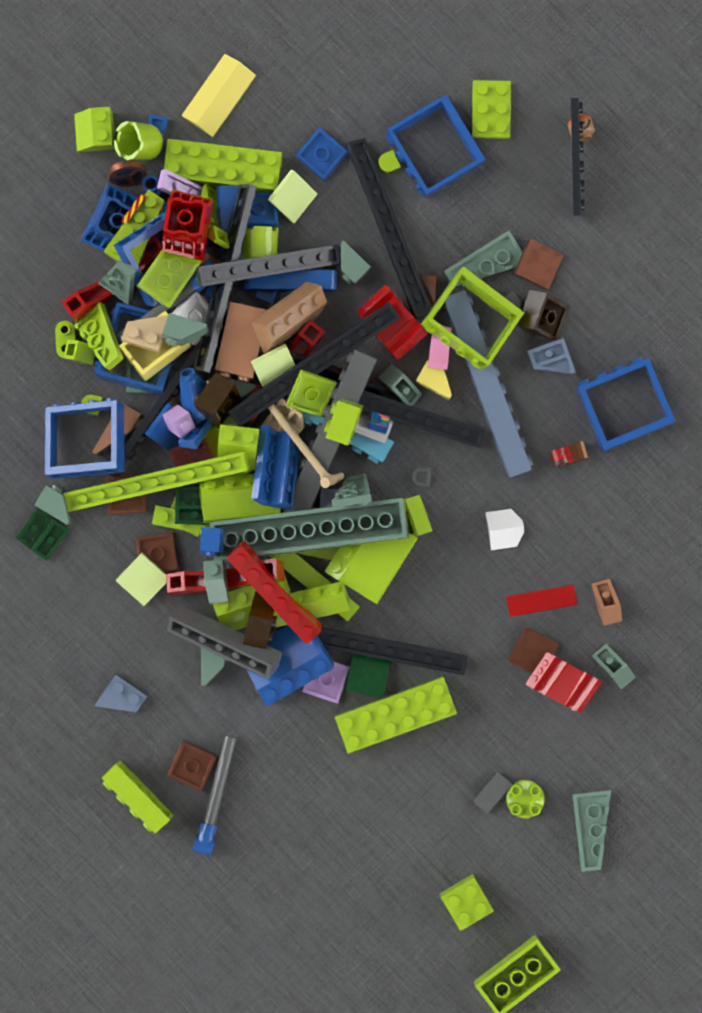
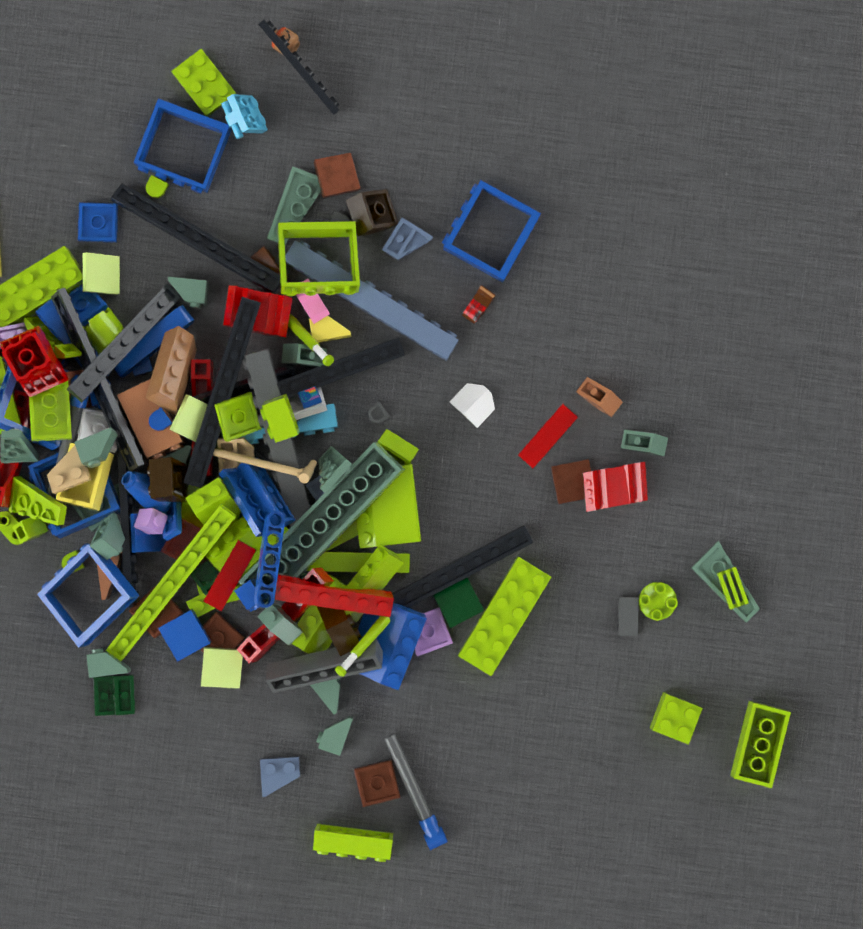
camera: 45 degrees left, 0 degrees up
(134, 530) = (184, 635): none -> blue tile
(136, 407) = (108, 537): none -> sand green slope
(188, 703) = (334, 736): none -> sand green slope
(206, 512) = (229, 575): none -> red sticker
(248, 348) = (159, 420): none -> blue tile
(257, 520) = (275, 551): none -> blue beam
(277, 647) = (375, 630): none -> lime piece
(412, 365) = (296, 327): none -> lime piece
(503, 159) = (244, 114): none -> medium azure plate
(604, 825) = (744, 599): none -> lime tile

